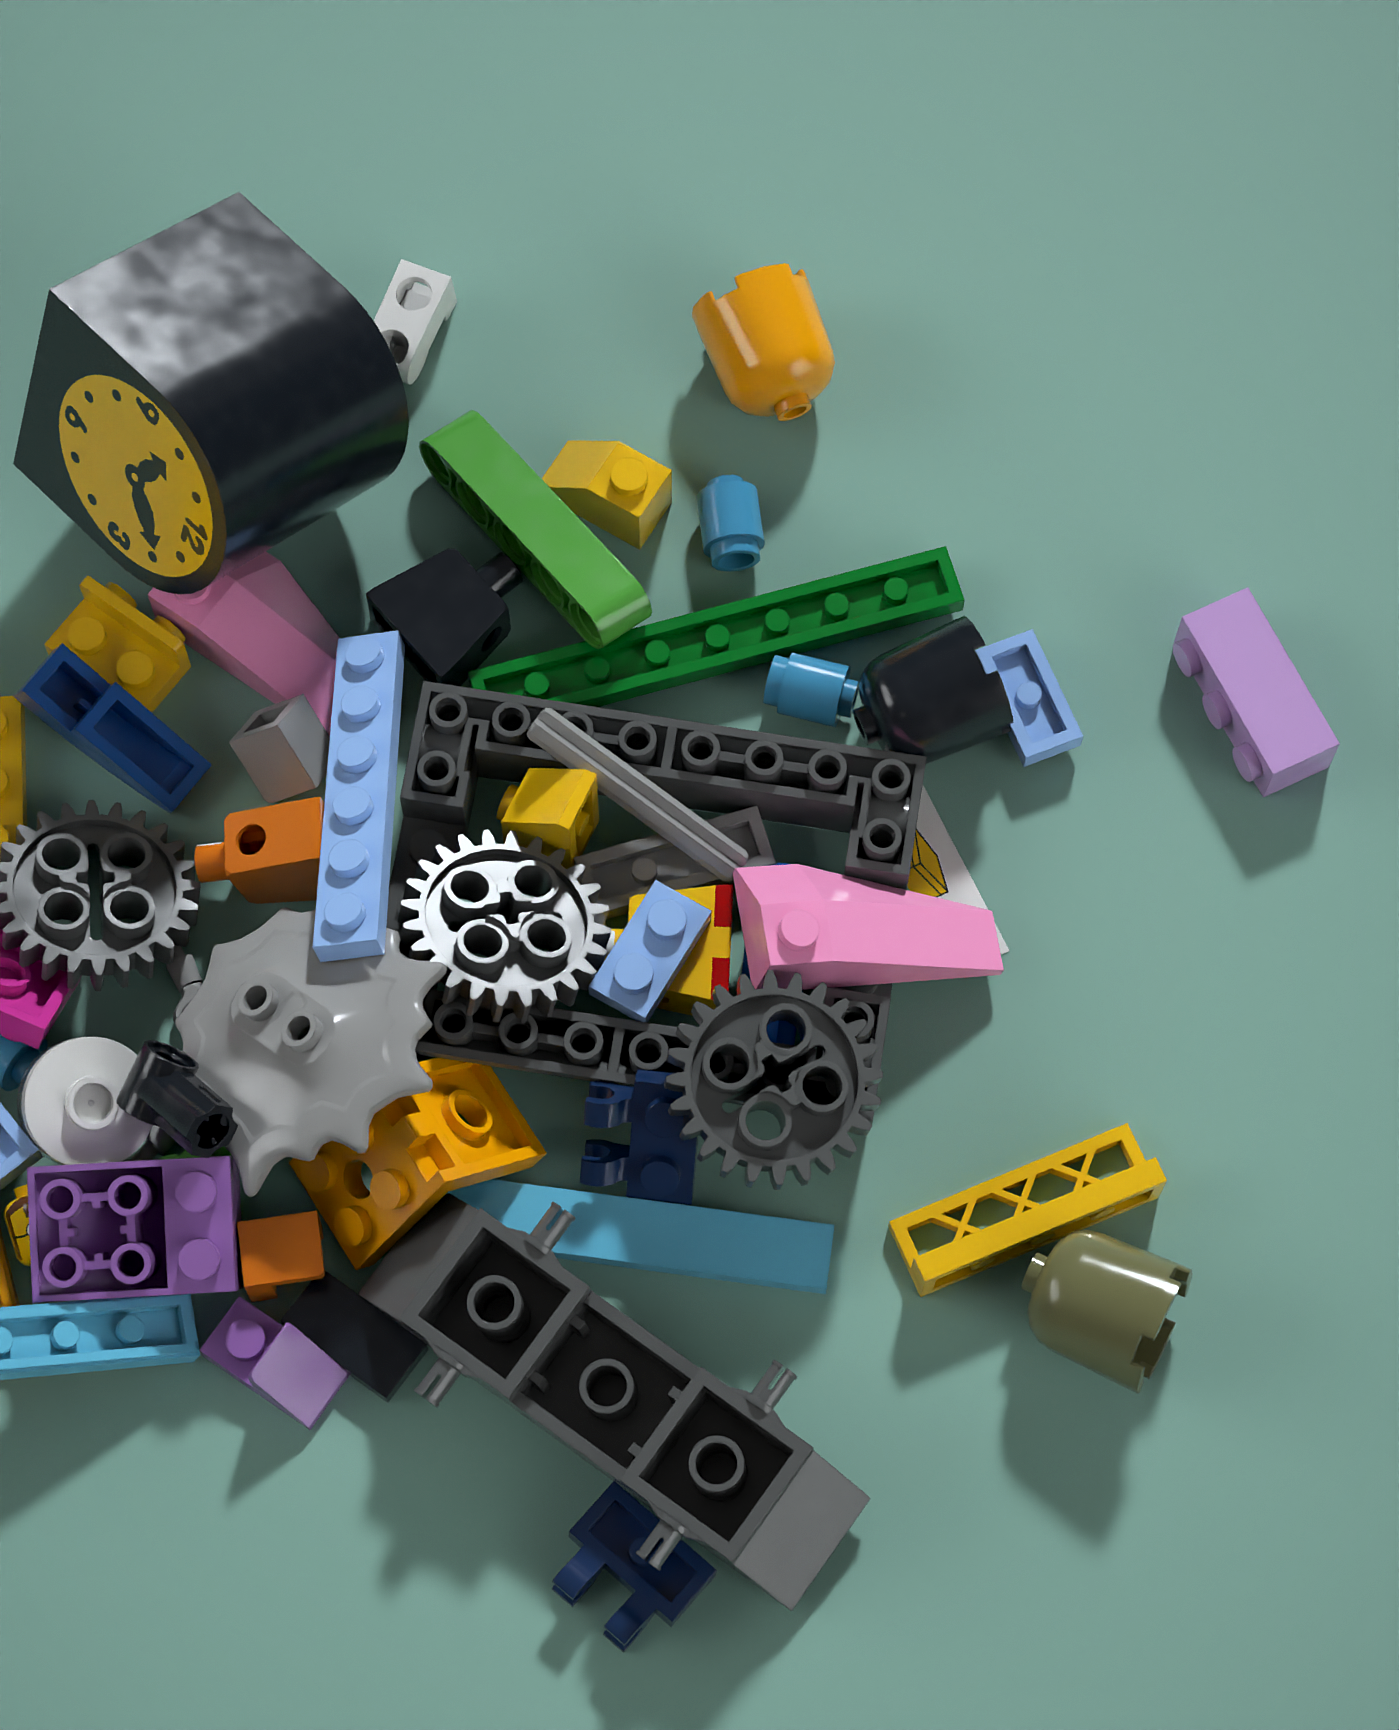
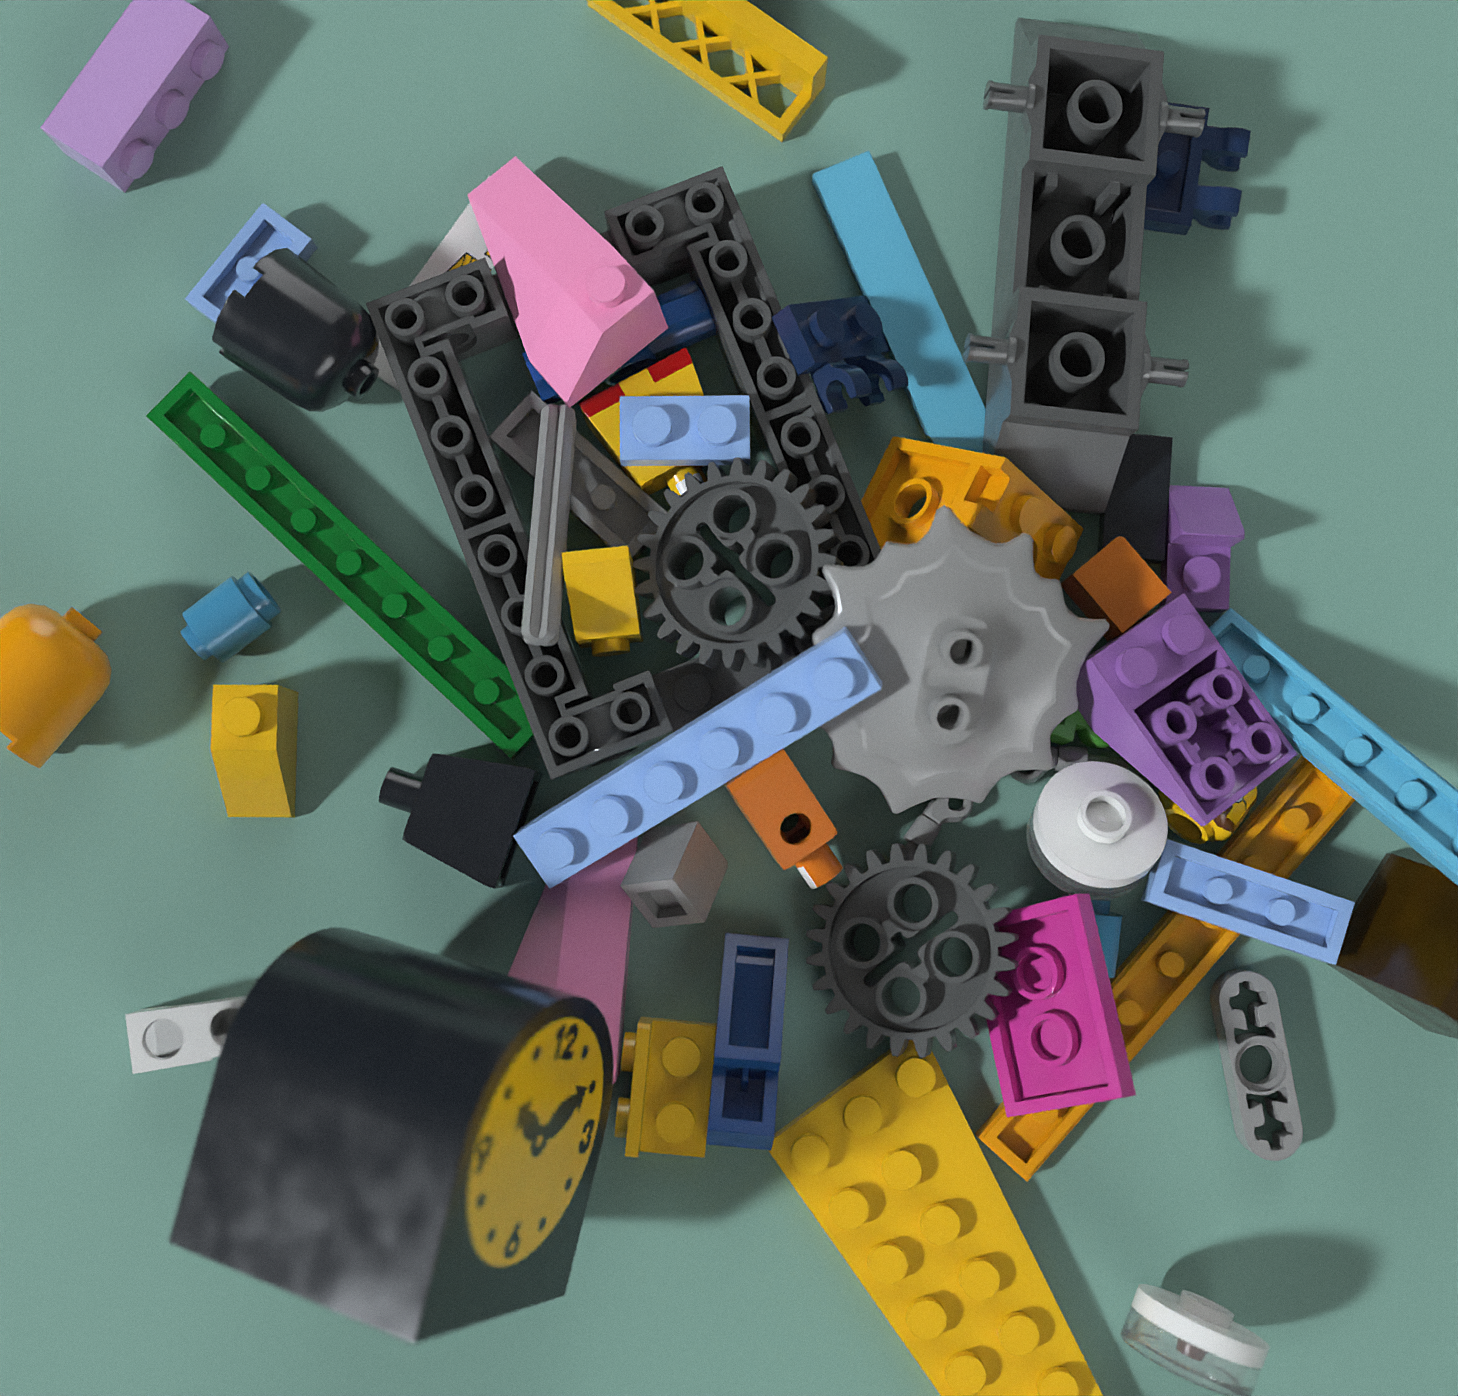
camera: 120 degrees left, 15 degrees up
(170, 1096) = (1067, 752): black piece -> none
(535, 529) = (338, 781): bright green beam -> none
(806, 1129) = (774, 198): dark grey gear -> none
(811, 689) = (351, 456): dark azure brick -> none

